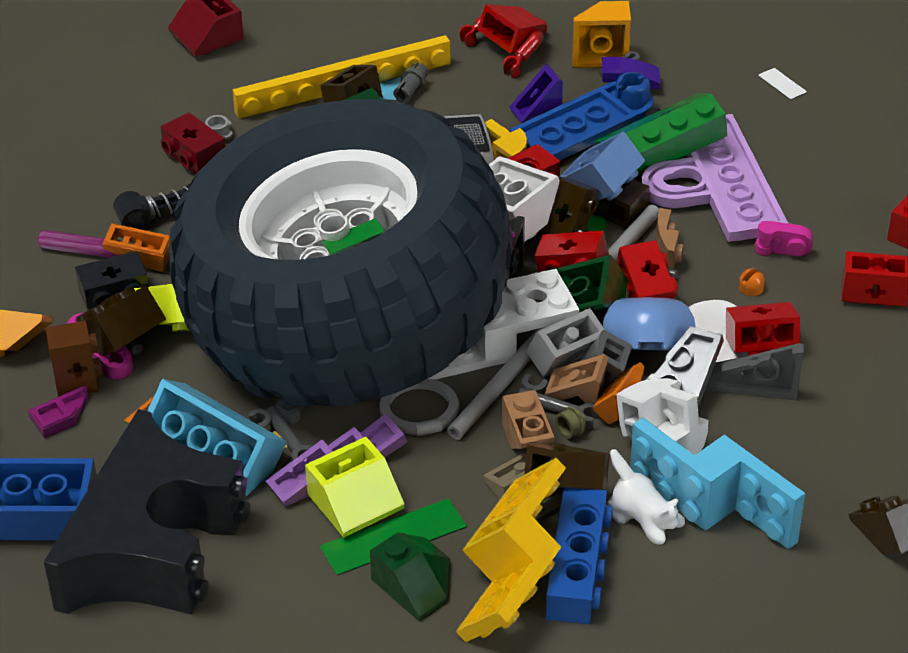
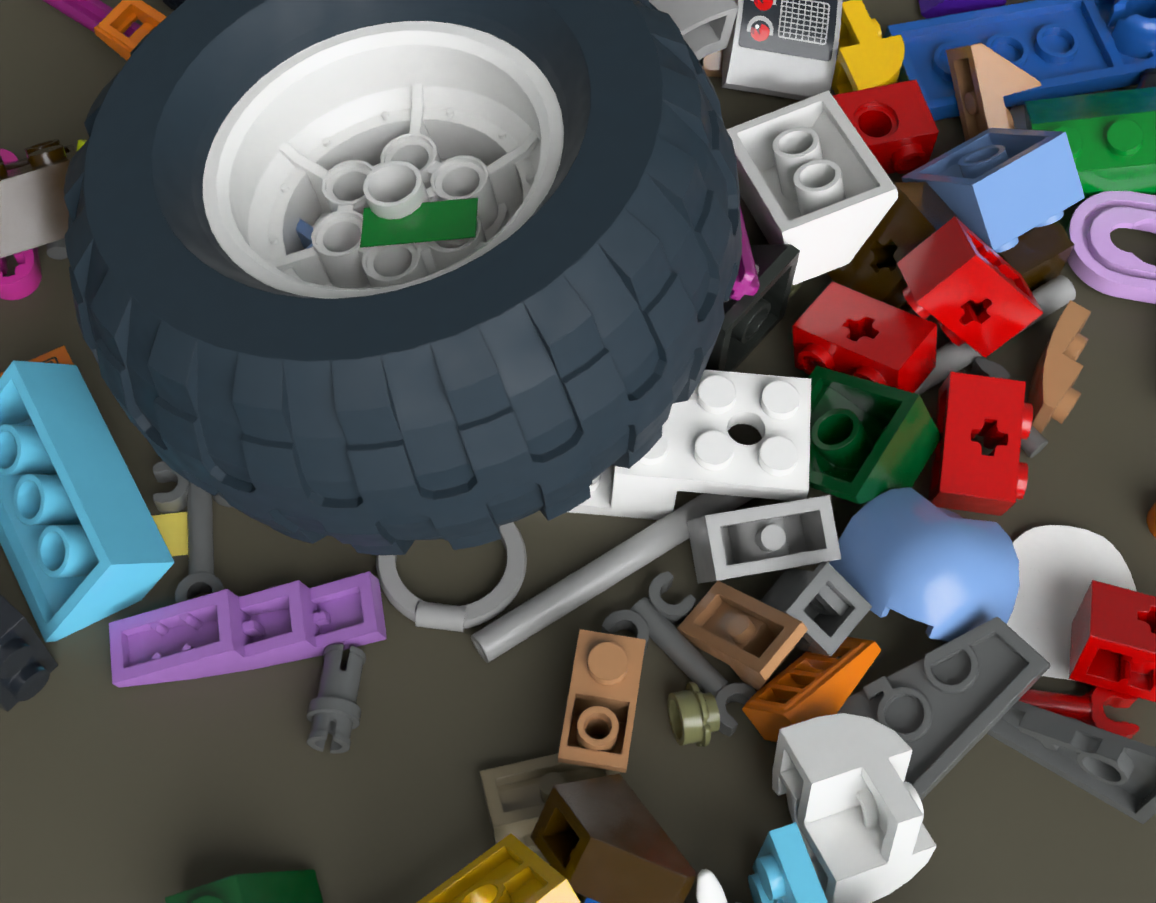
camera: 20 degrees right, 20 degrees up
(109, 276) = (58, 98): black brick -> none
(353, 487) = (230, 717): neon yellow slope -> none
(401, 472) = (336, 700): none -> dark grey pin
(425, 522) = (266, 833): green sticker -> none
(571, 134) = (980, 84): none -> slope
(611, 211) = (967, 289): none -> red brick

